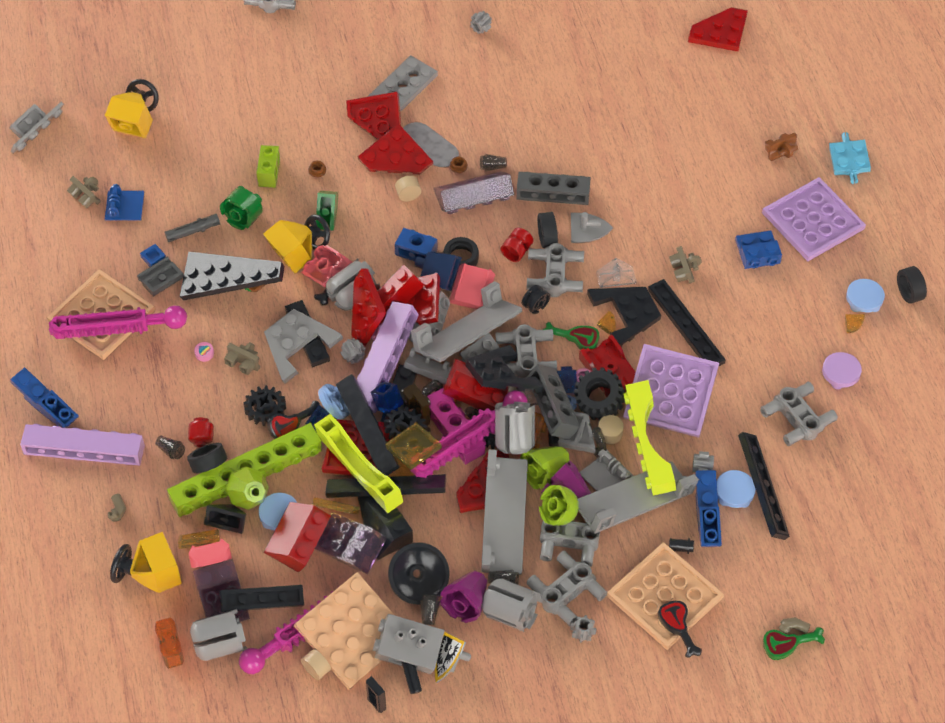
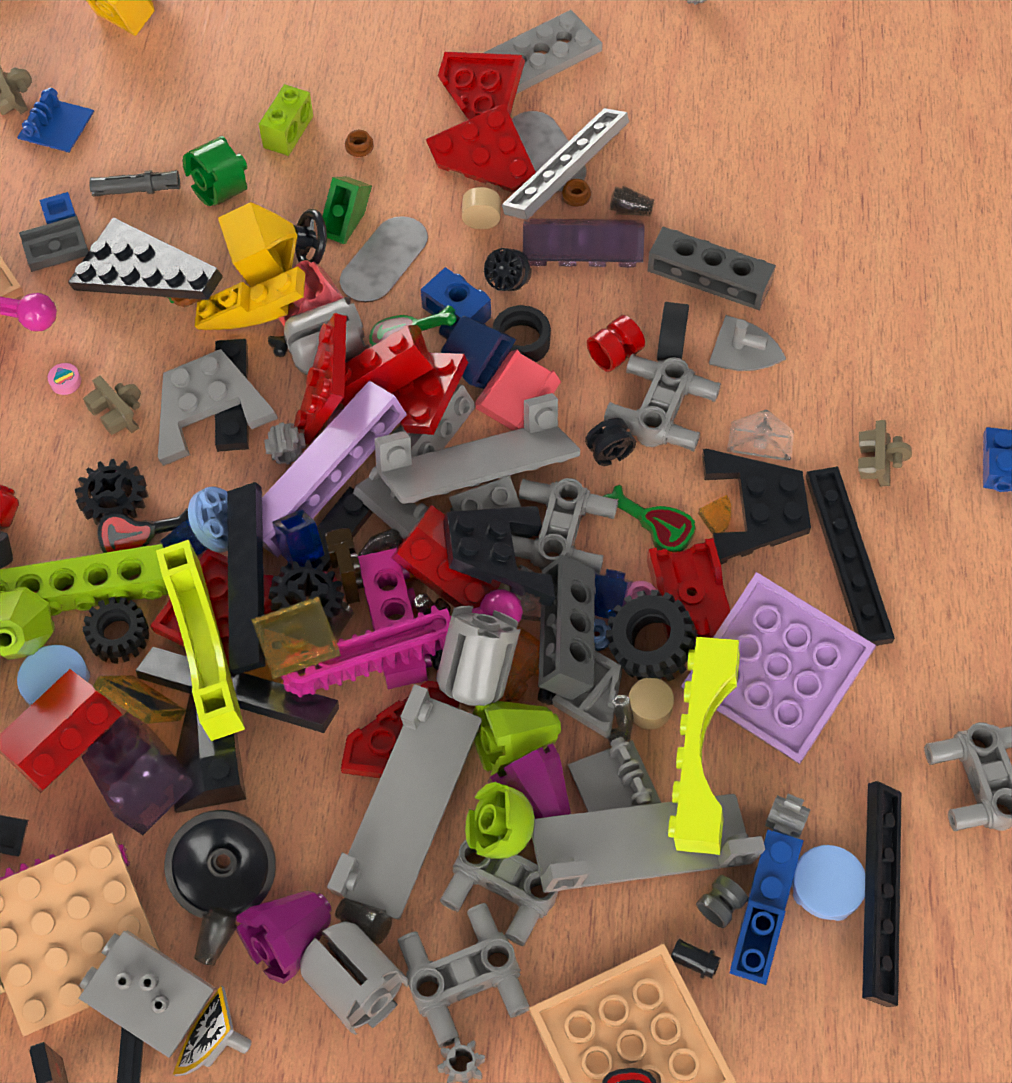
camera: 20 degrees right, 5 degrees up
(299, 279) = (247, 306): none -> yellow slope
(299, 467) = (104, 617): none -> black tyre
(360, 232) = (383, 259): none -> flat silver sticker
(386, 270) = (389, 325): none -> green piece
(438, 219) = (507, 269): none -> black wheel
(446, 149) = (565, 164): none -> light grey plate
(684, 515) = (722, 901): none -> dark grey wheel

